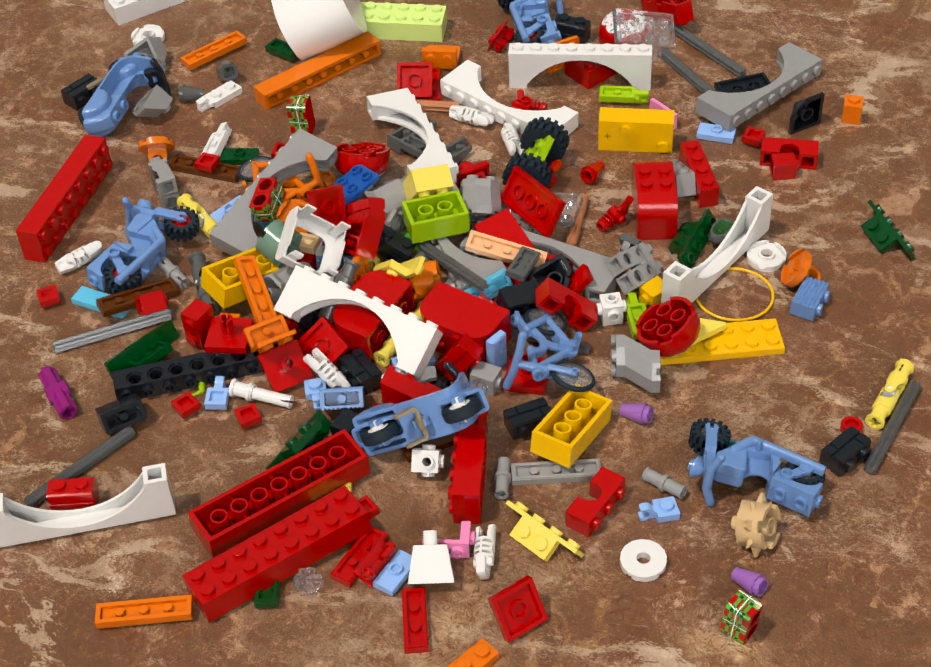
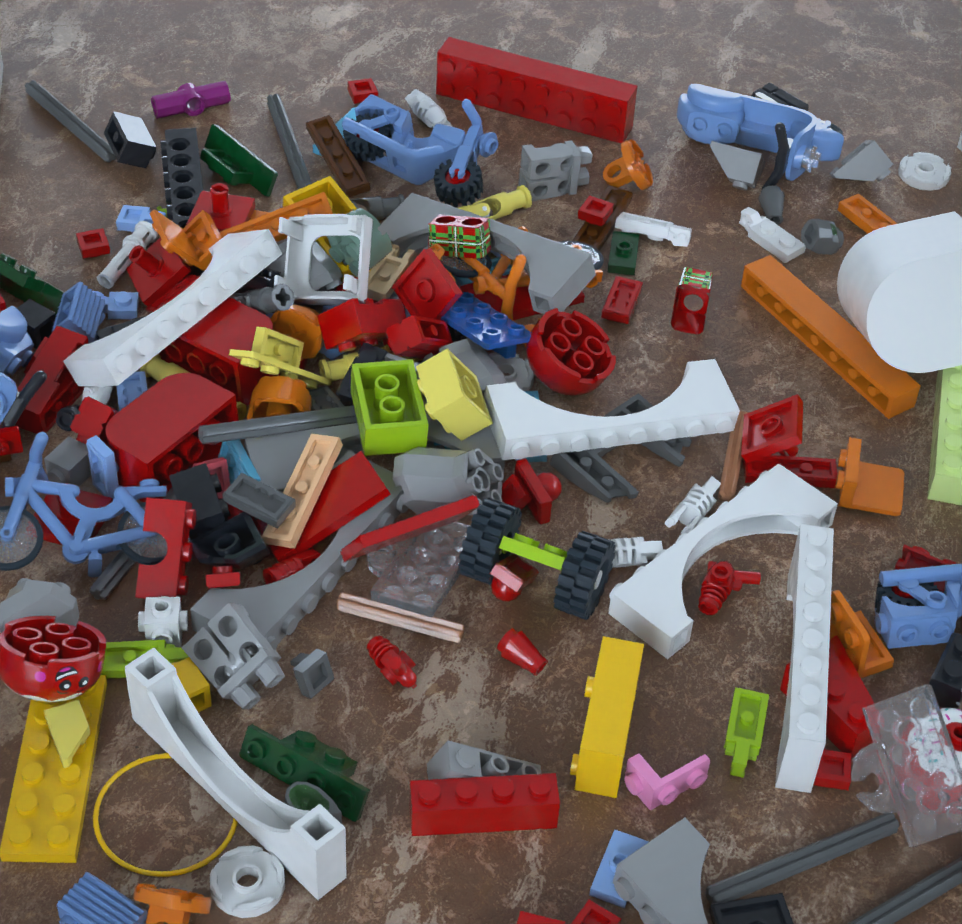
camera: 90 degrees right, 0 degrees up
(72, 493) = (20, 109): red brick -> none
(151, 302) = (315, 160): red brick -> none
(174, 272) = (382, 186): light grey pin -> none
(186, 405) = (132, 193): red plate -> none
(196, 322) = (258, 183): red brick -> none
(326, 371) = (136, 301): white hinge -> none
(654, 200) = (405, 705): red brick -> none

